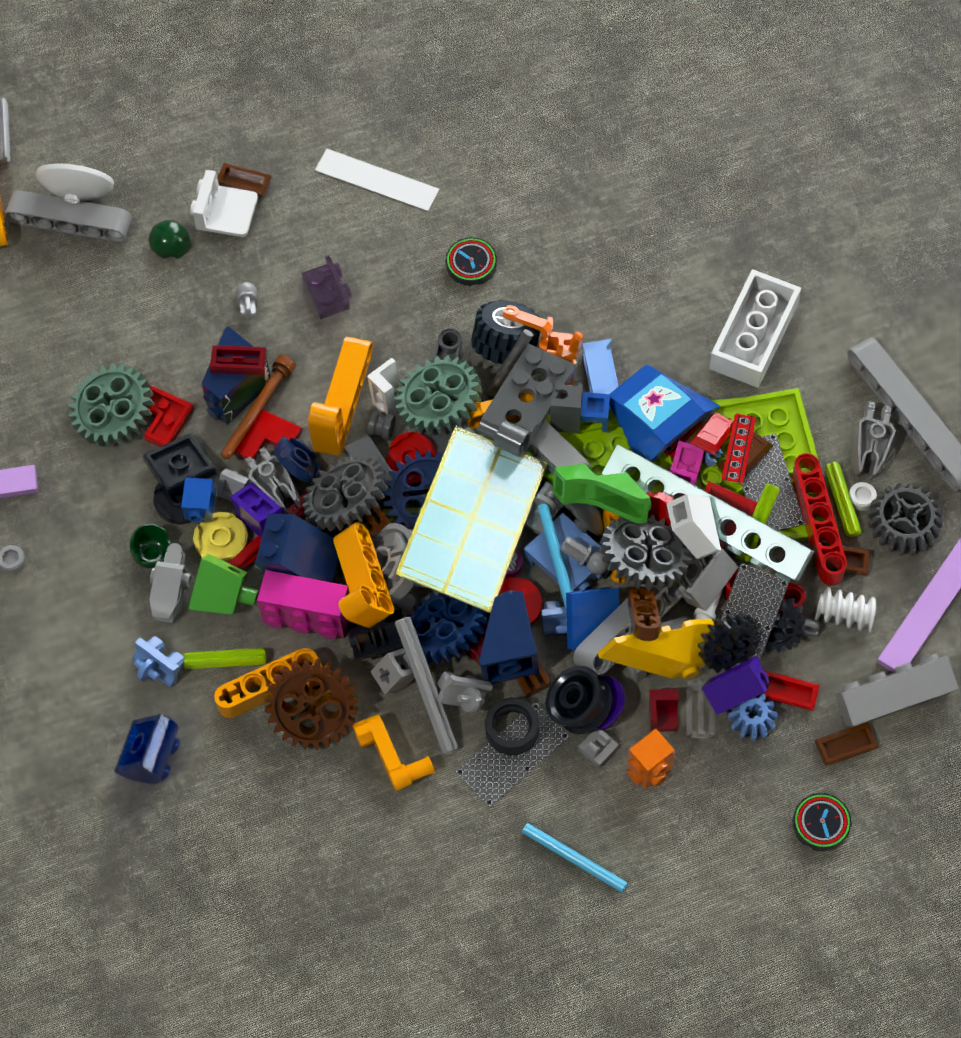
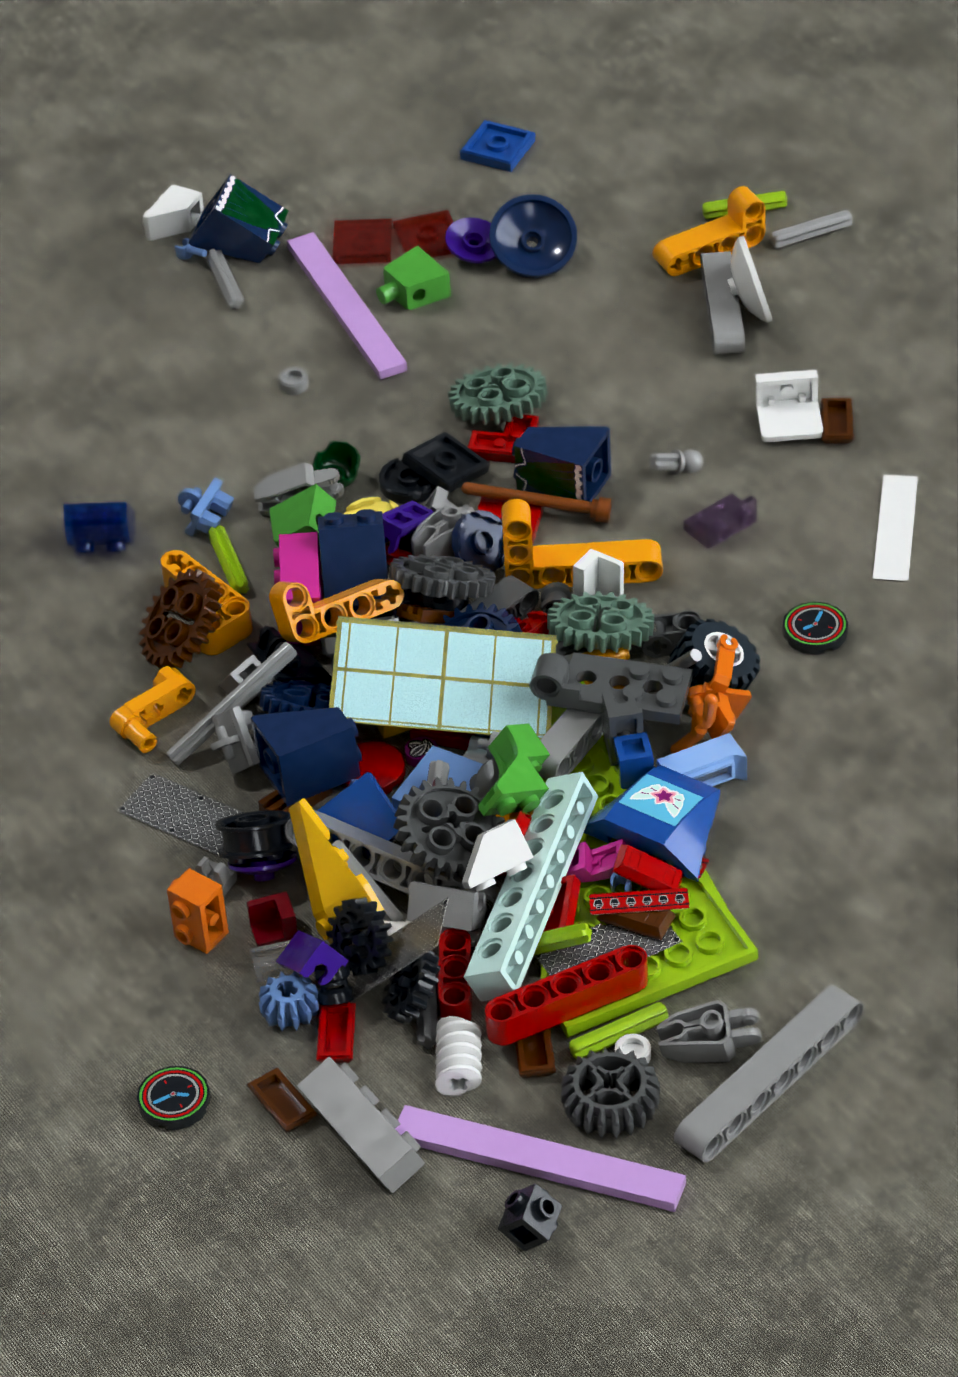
camera: 75 degrees right, 20 degrees down
(169, 239) = (730, 384): dark green hair -> none
(198, 499) = (401, 480): blue brick -> none
(238, 364) = (569, 456): dark red tile -> none
(512, 705) = (209, 778): black tyre -> none
(555, 550) = (421, 769): medium azure bar -> none
(574, 857) = (72, 891): medium azure bar -> none
(644, 613) = (336, 827): reddish brown beam -> none
(755, 328) = (823, 887): white brick -> none

